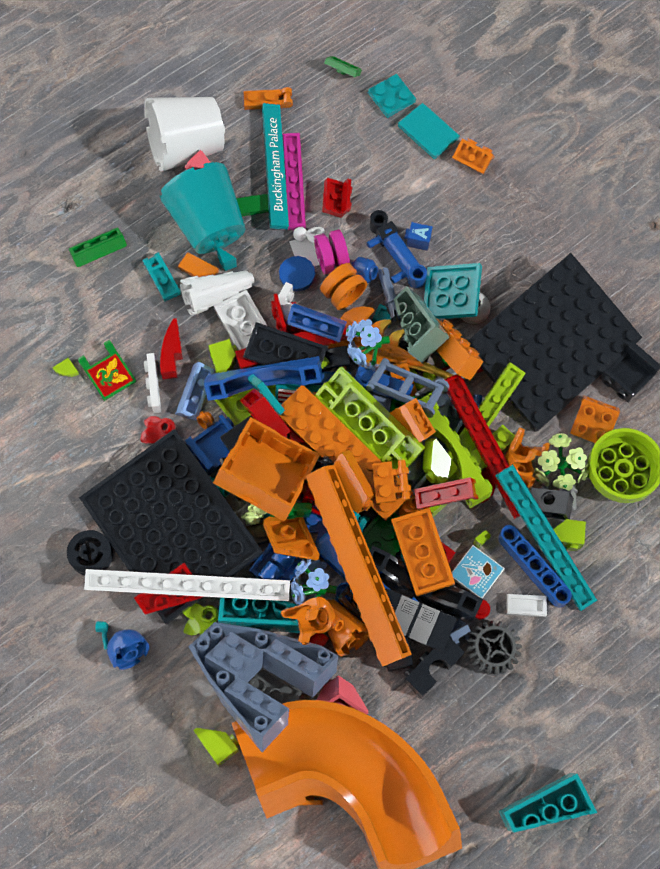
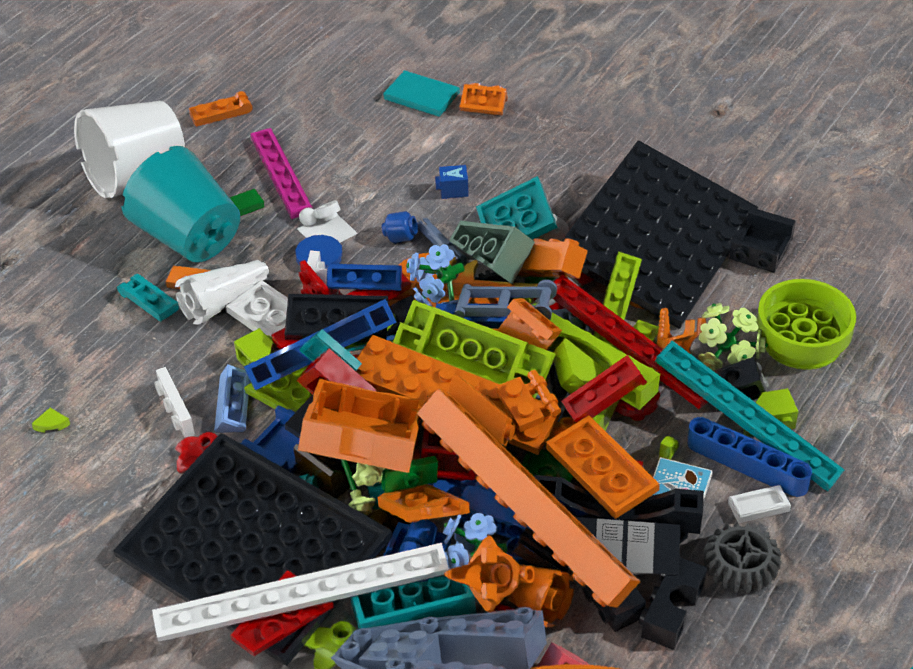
camera: 15 degrees left, 25 degrees down
(75, 556) = (134, 617): black wheel -> none
(97, 247) = (55, 291): green slope -> none
(108, 374) = (110, 413): flag -> none
(170, 351) = (187, 365): red slope -> none
(205, 419) = (256, 423): orange plate -> none
(226, 260) = (223, 256): teal slope -> none
(275, 166) = (254, 164): teal tile -> none
(331, 251) = (355, 215): dark pink wheel -> none
(337, 197) = (340, 172): red bracket -> none
(342, 66) = (299, 62): green plate -> none
(343, 286) = (382, 241): orange wheel -> none
(388, 236) = (415, 190): blue piece -> none
(392, 95) = (366, 74): teal plate -> none
(460, 629) = (689, 549): sand blue tile -> none
(484, 610) = (708, 524): red plate -> none
(594, 419) = (743, 290): orange bracket -> none

